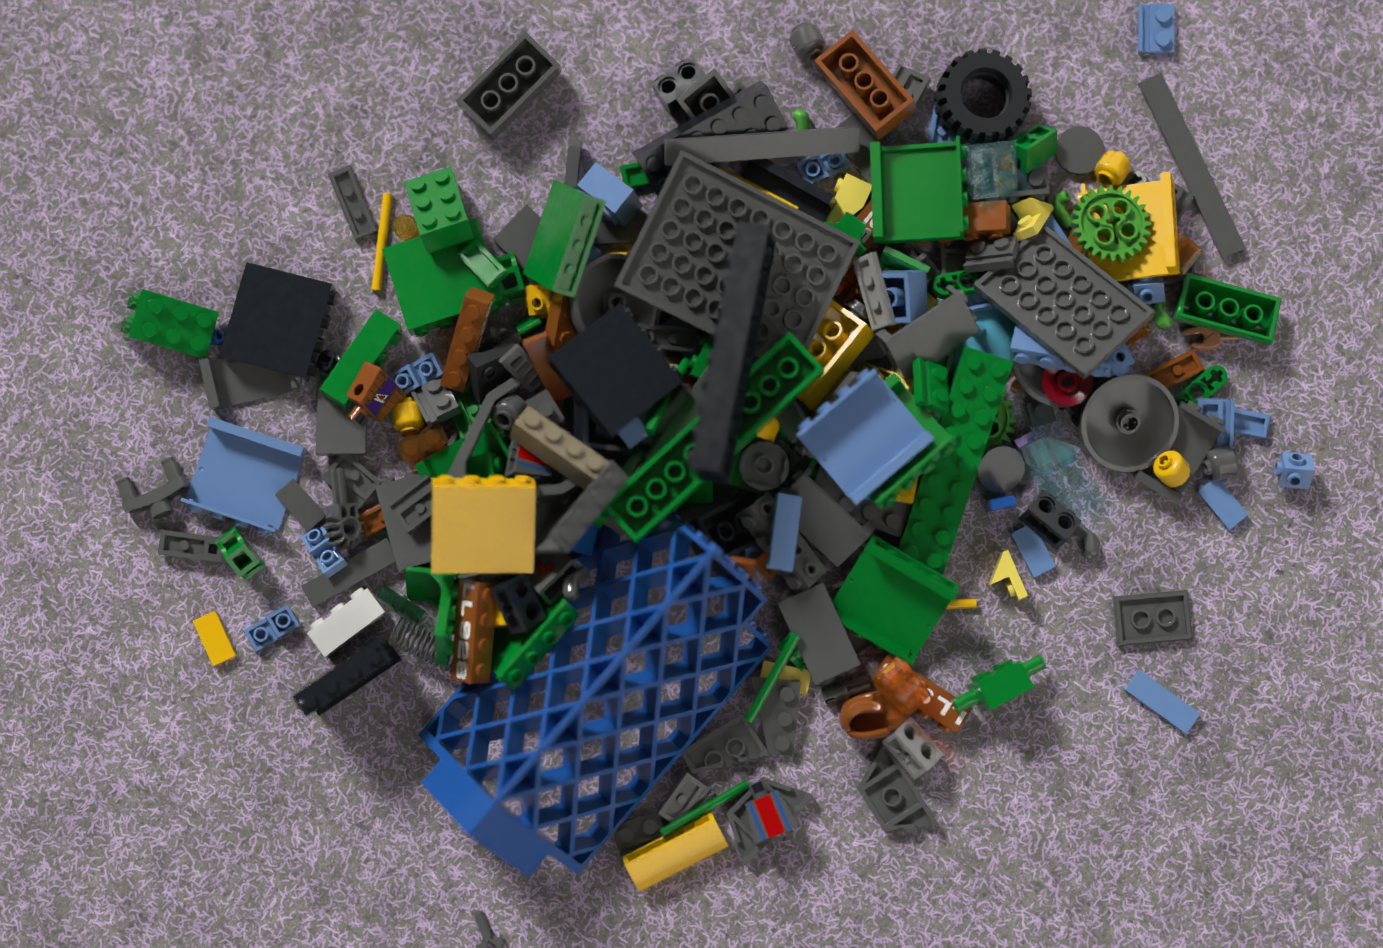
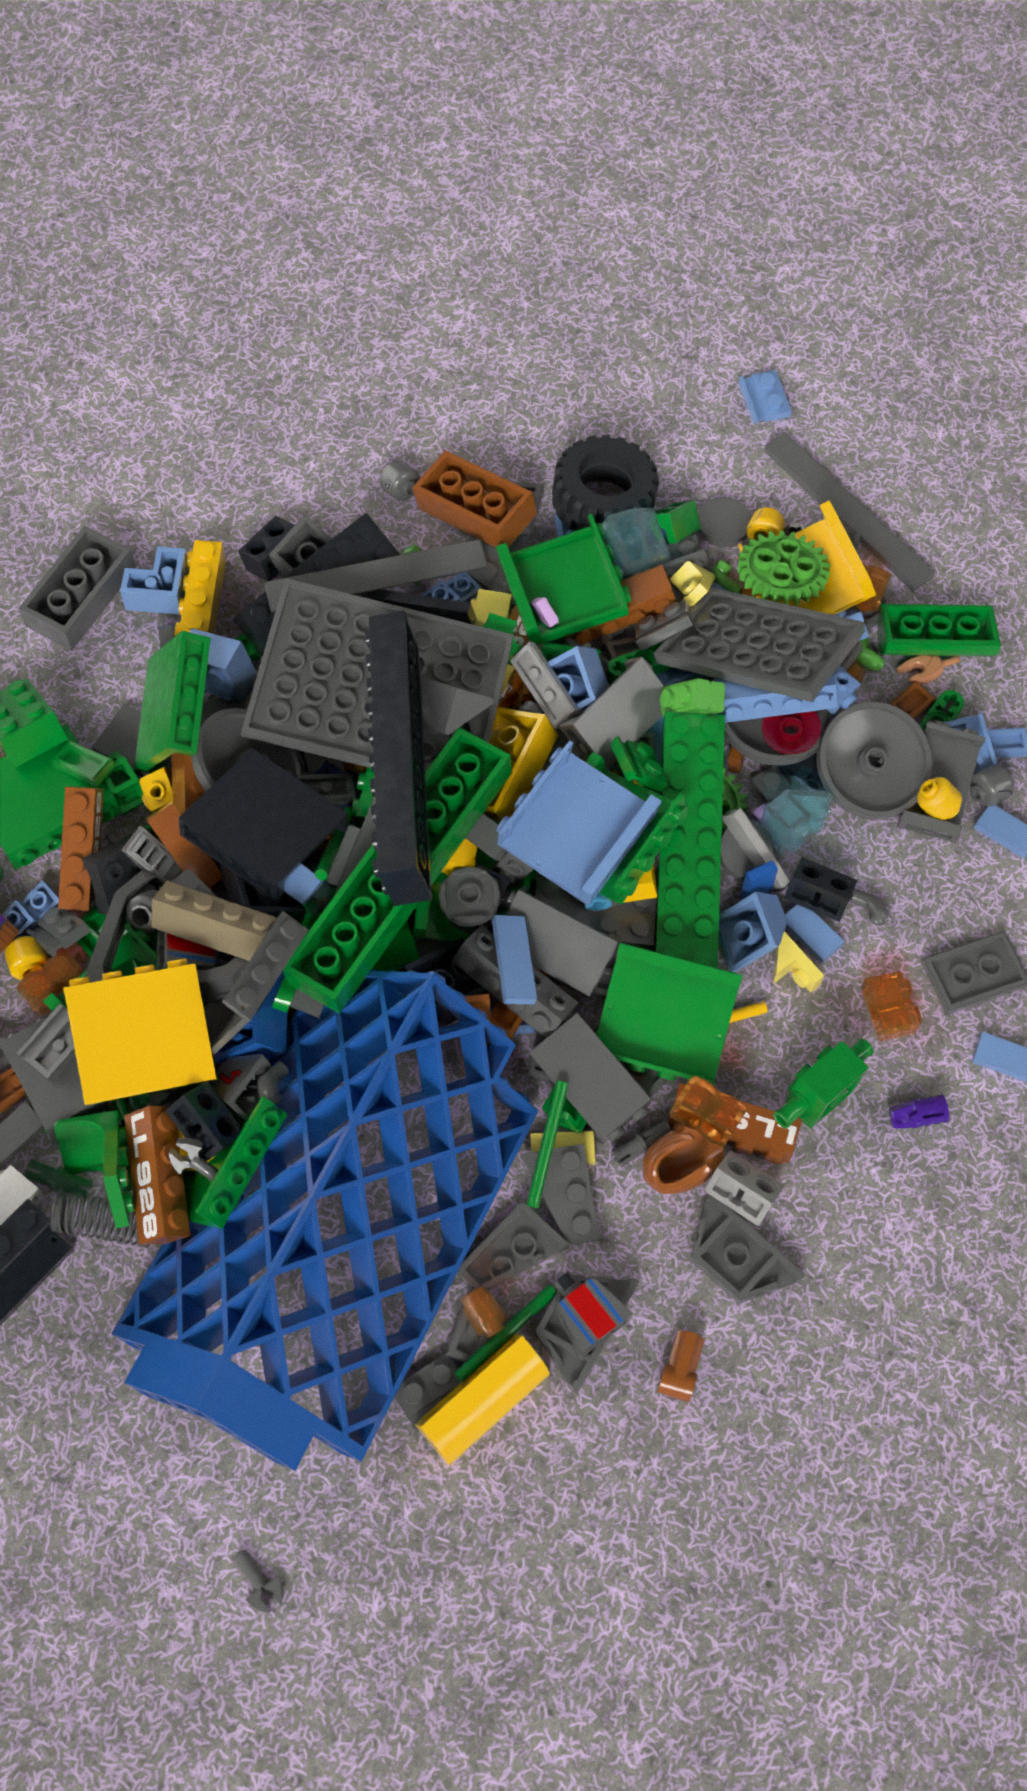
camera: 20 degrees left, 20 degrees down
(502, 630) = (193, 1158): none -> dark grey bar
(577, 104) = (158, 588): none -> medium blue brick
(611, 119) = (202, 587): none -> yellow brick
(691, 792) = (483, 1312): none -> clear orange brick
(789, 306) = (449, 706): none -> dark grey slope
(824, 870) = (679, 1374): none -> dark orange piece
(893, 217) = (544, 611): none -> lavender tile
(983, 540) = (751, 929): none -> medium blue slope
(991, 340) = (693, 696): none -> bright green brick
(1006, 473) = (752, 843): none -> light grey tile
(1067, 721) = (919, 1112): none -> dark purple hinge
(1074, 630) = (890, 1006): none -> clear orange brick

